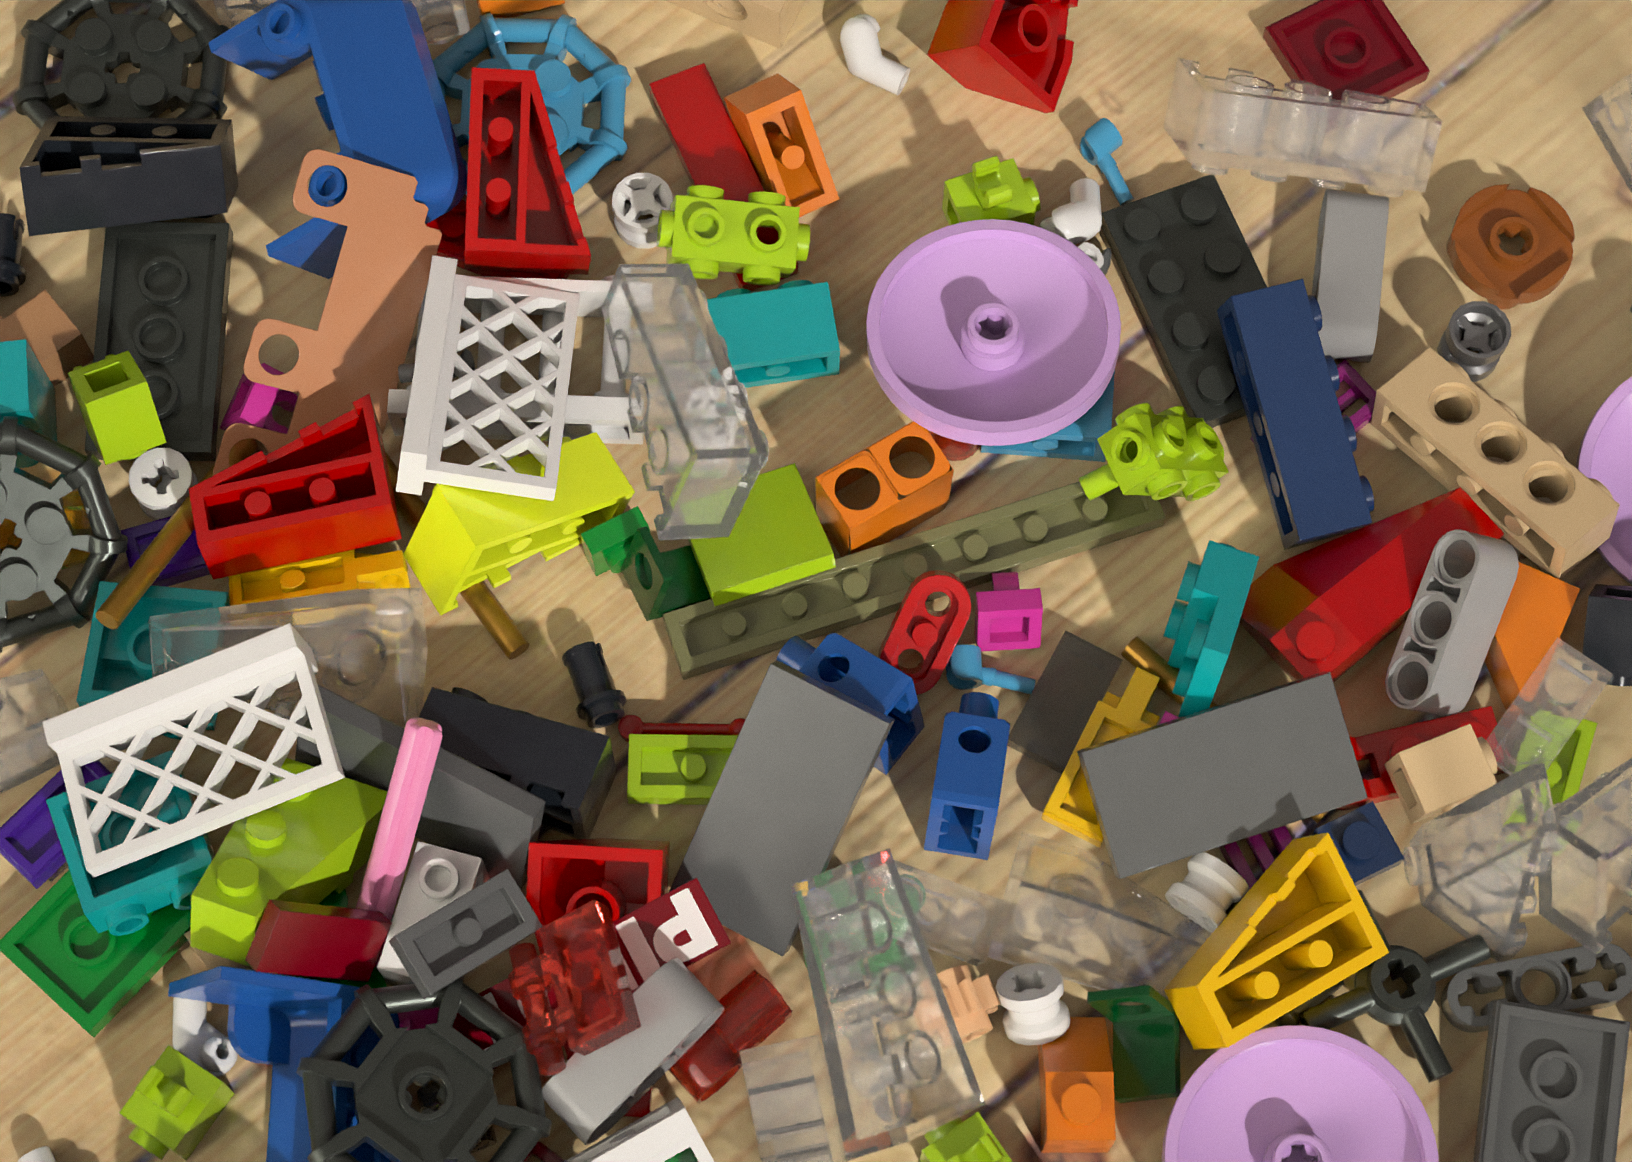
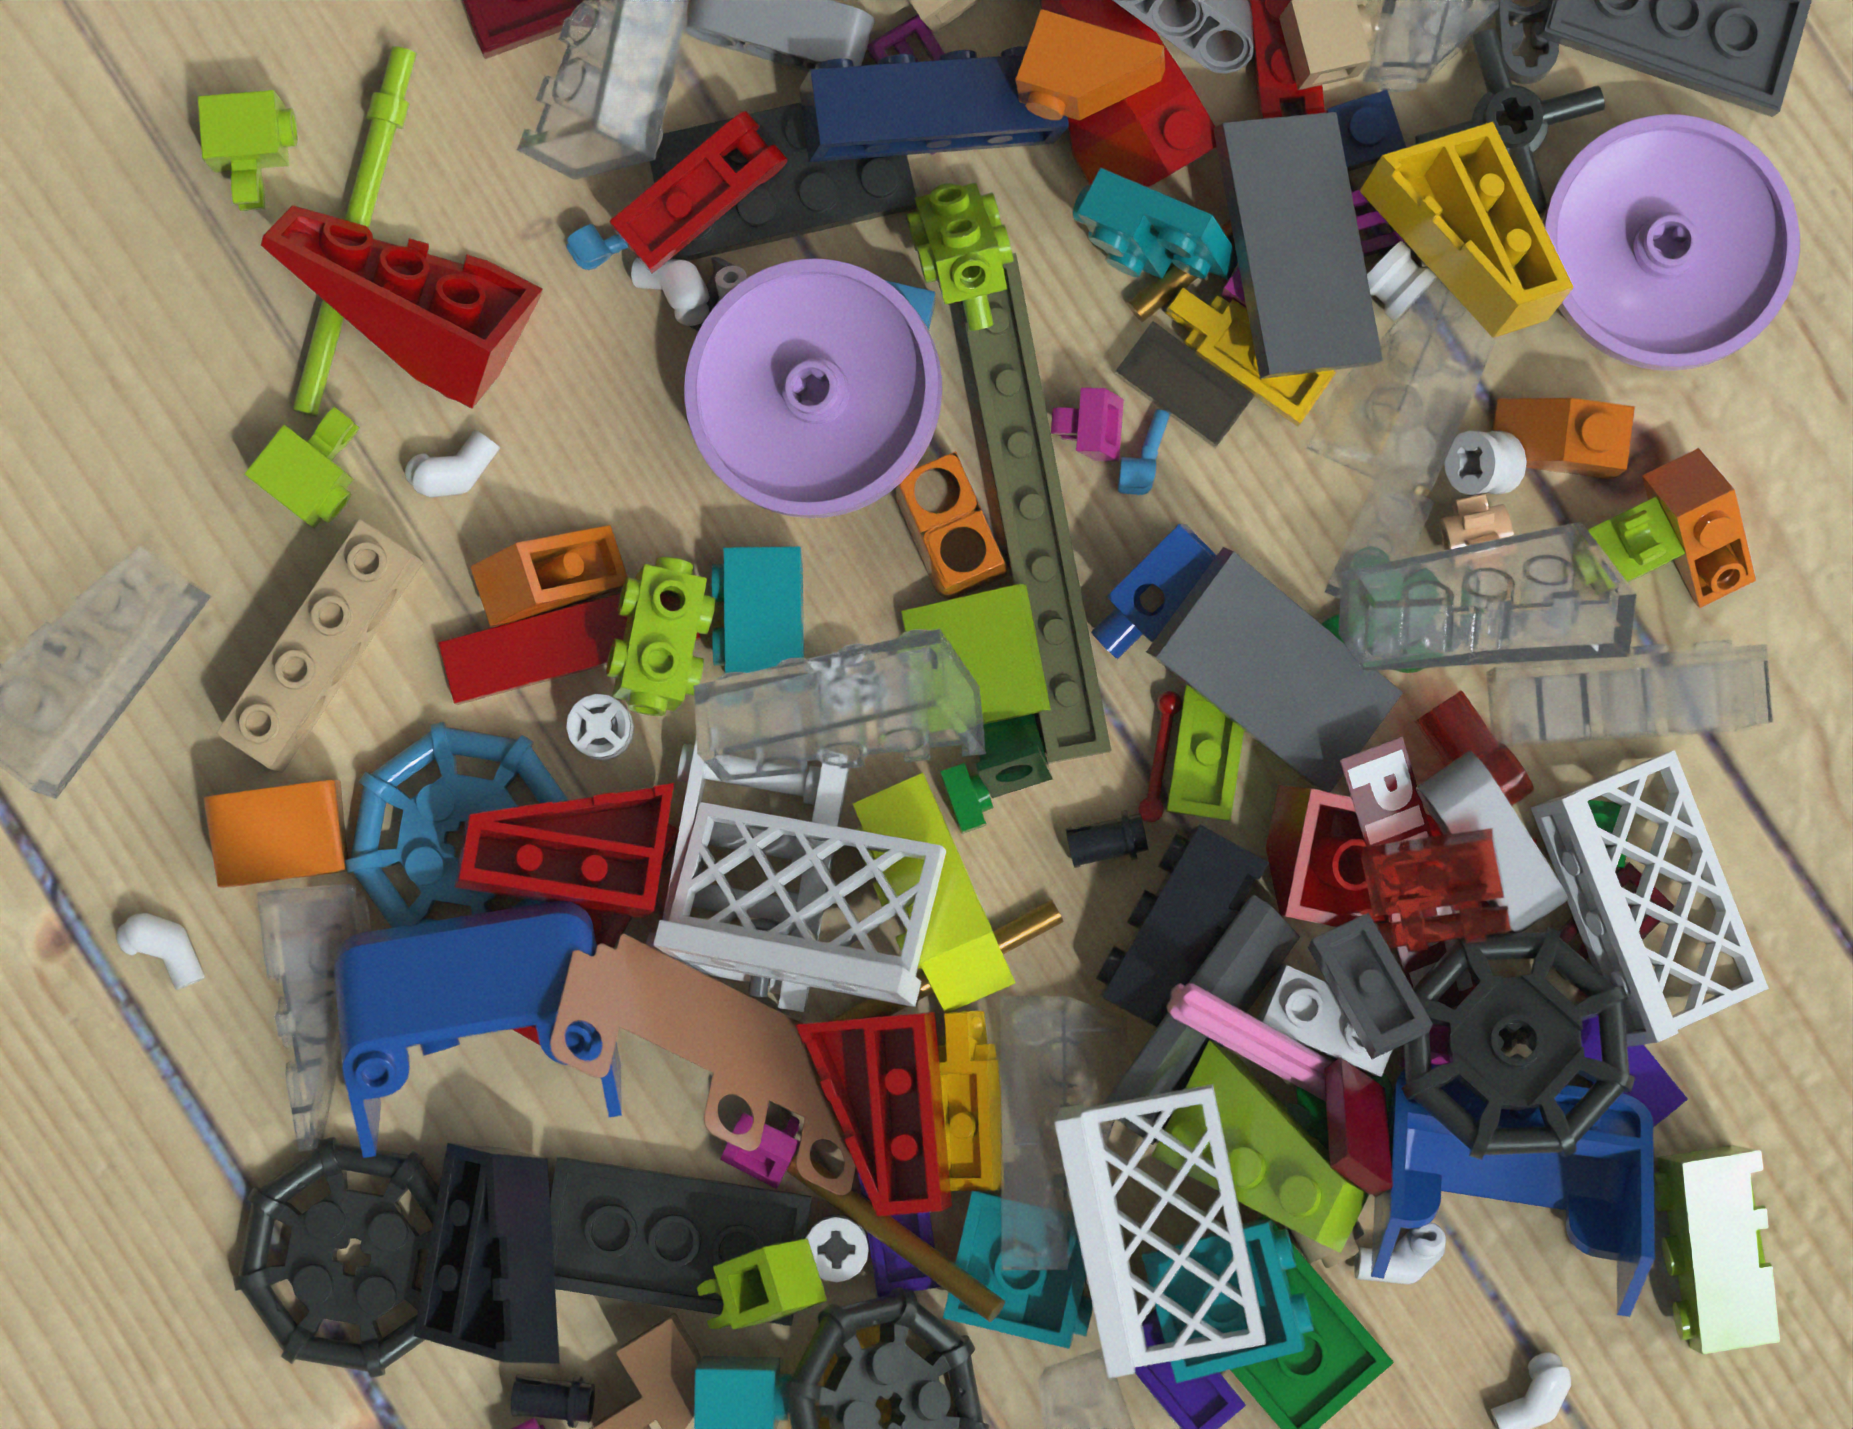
camera: 80 degrees left, 15 degrees up
(174, 1105) = (1475, 1285): lime brick -> none
(927, 630) = (1101, 504): red plate -> none
(968, 778) = (1280, 499): blue torso -> none
(991, 192) = (650, 369): lime brick -> none
(1143, 1042) = (1540, 366): dark green bracket -> none
(1167, 214) = (696, 192): none -> red plate
(1356, 529) = (1083, 67): none -> orange slope

